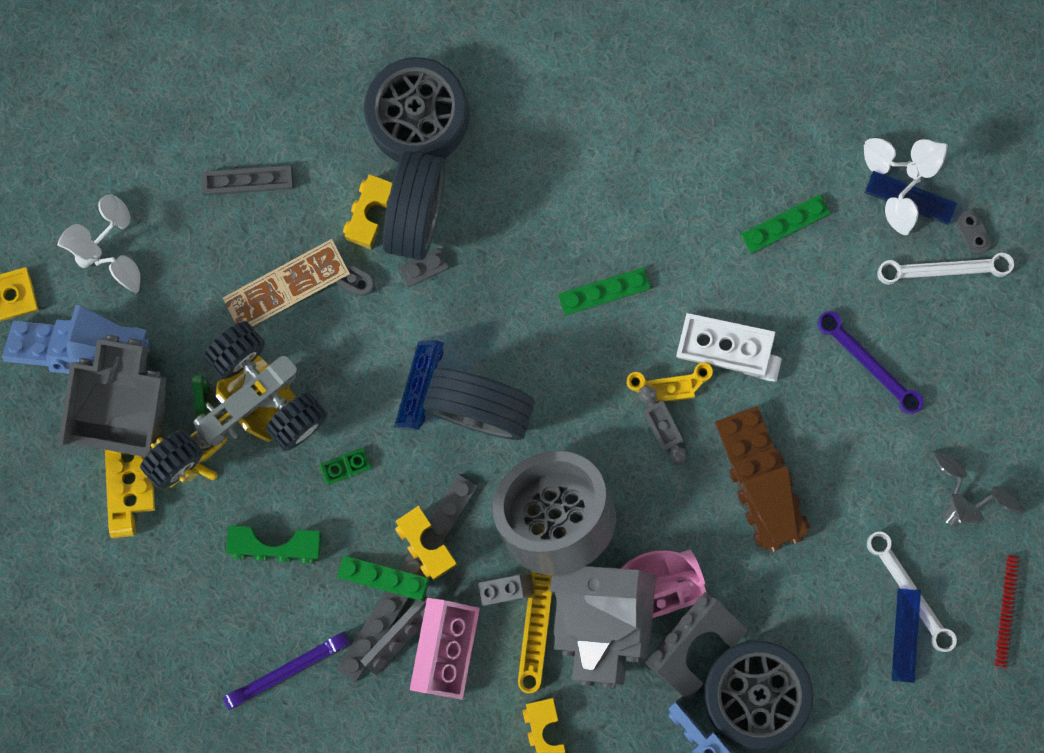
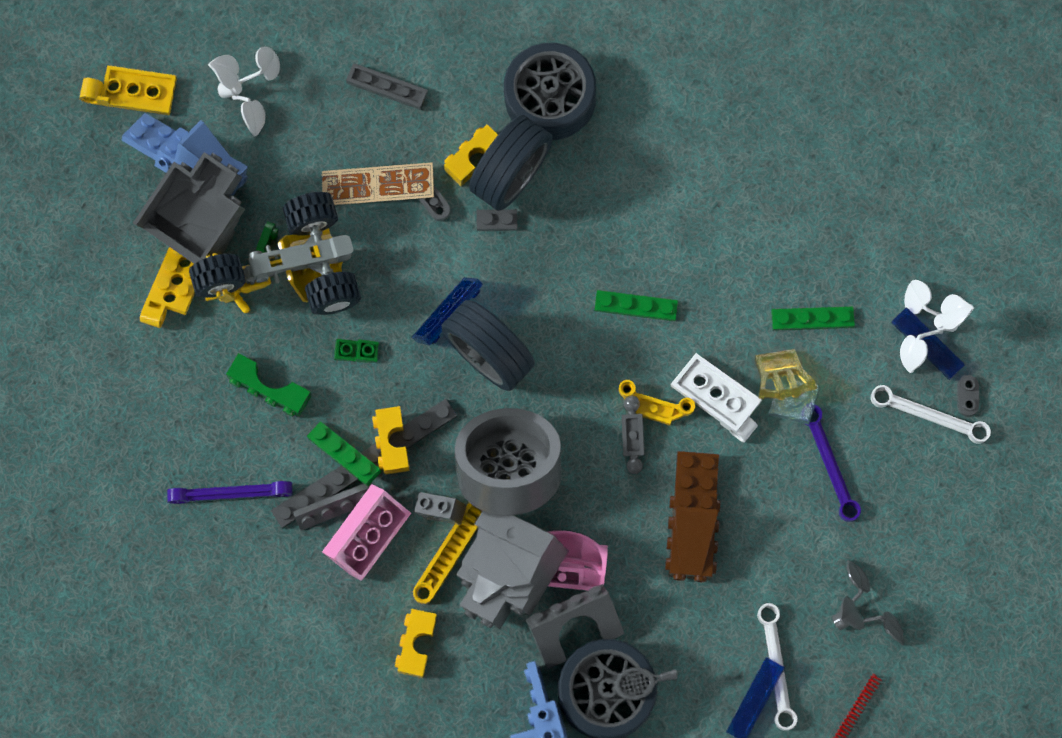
camera: 20 degrees right, 5 degrees down
(776, 286) = (782, 364): none -> clear yellow plate
(806, 316) = (792, 408): none -> clear light blue tile
(809, 658) = (662, 677): none -> dark grey piece

